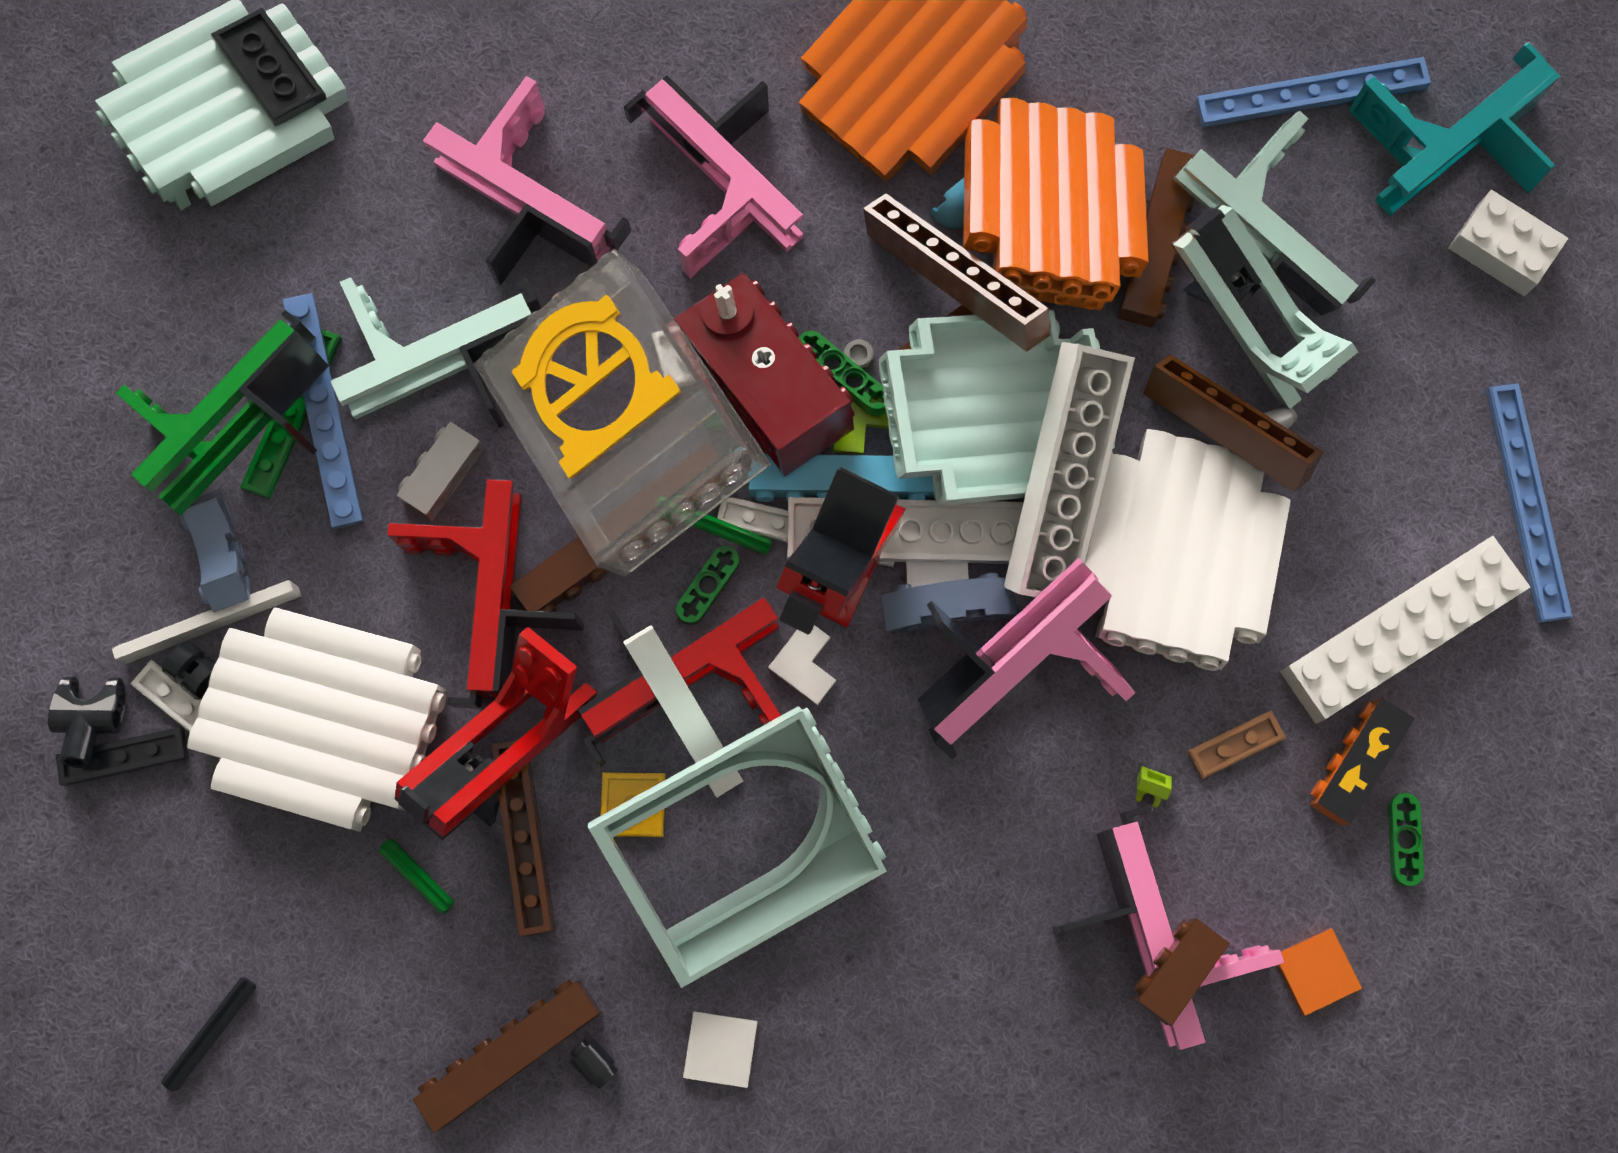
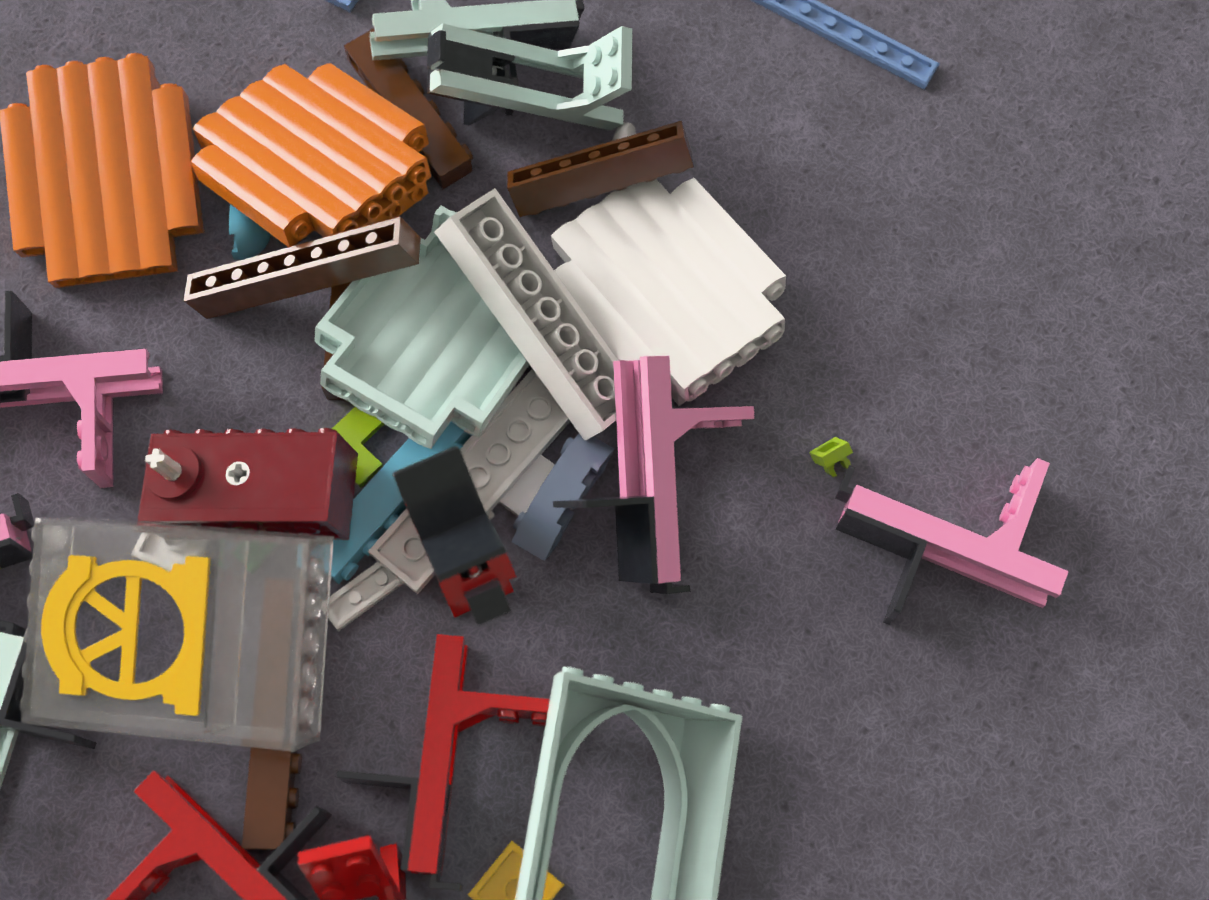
camera: 55 degrees left, 5 degrees down
(440, 471) = (86, 831): light grey brick -> none
(678, 702) = (463, 776): white tile -> none
(688, 599) = (368, 656): green beam -> none
(734, 534) = (361, 619): green axle -> none
(796, 665) = (512, 658): white tile -> none
(845, 371) = (305, 418): green beam -> none
(859, 352) = (298, 404): light grey tile -> none
(1180, 970) = (1000, 544): reddish brown brick -> none
(1236, 744) = (847, 369): medium nougat tile -> none
(1318, 972) = (1070, 449): orange tile -> none
(1361, 761) = (932, 290): black brick -> none
(1404, 630) = (857, 182): white brick -> none
(1417, 862) = (1027, 304): green beam -> none

